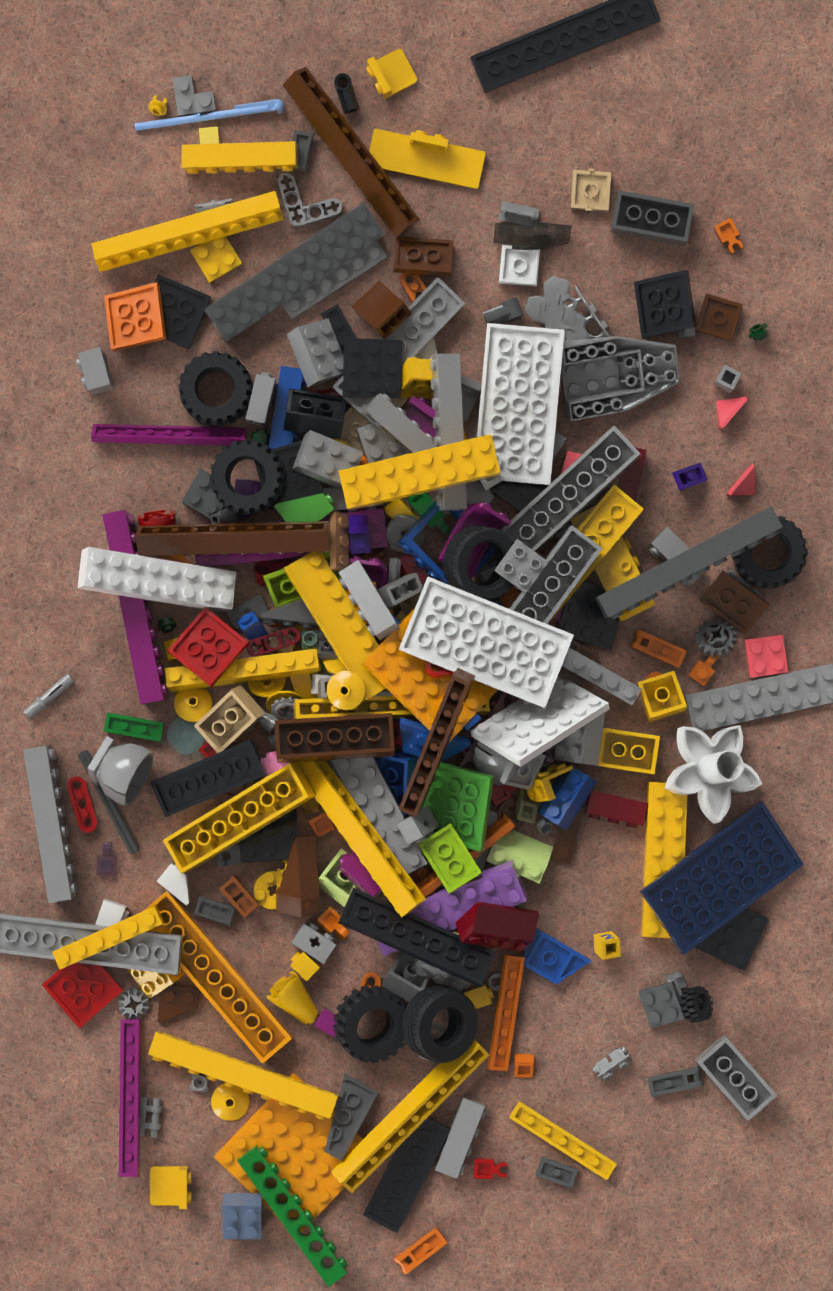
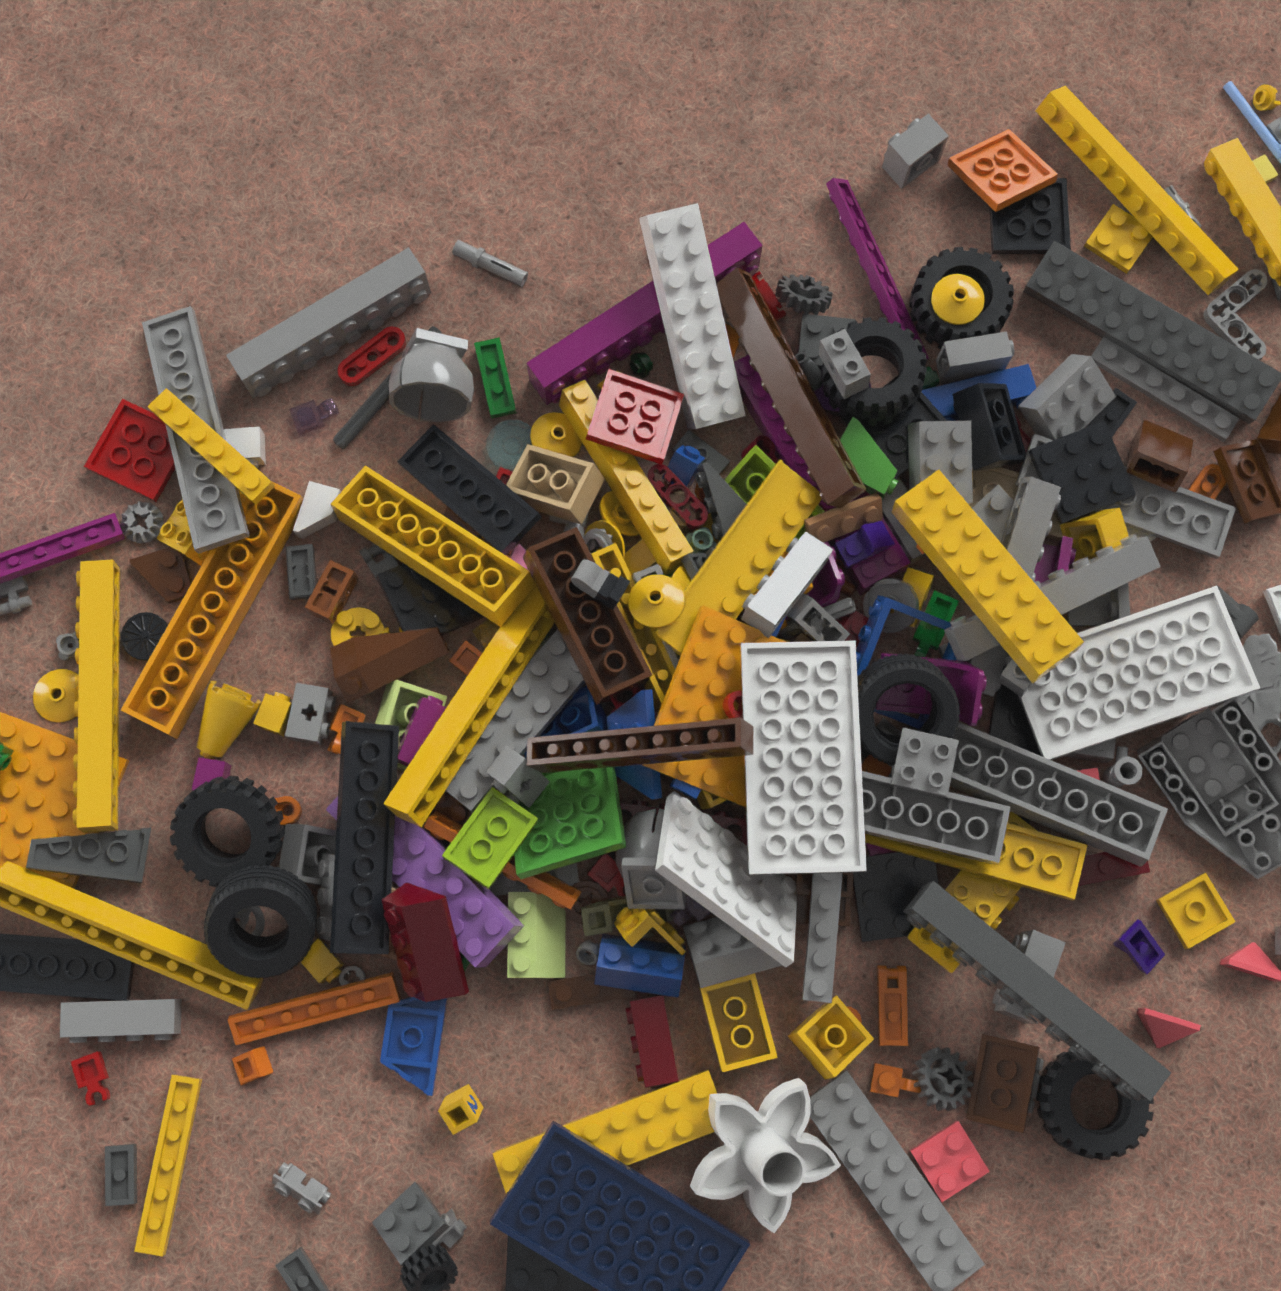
camera: 70 degrees right, 10 degrees down
(166, 493) = (803, 294): none -> dark grey gear
(214, 1030) = (142, 634): none -> black wheel
(225, 402) = (953, 309): none -> yellow dish
(240, 499) = (844, 363): none -> light grey brick
(320, 721) = (599, 583): none -> leg
(578, 436) = (1125, 771): none -> light grey piece
(682, 430) = (1195, 911): none -> yellow plate

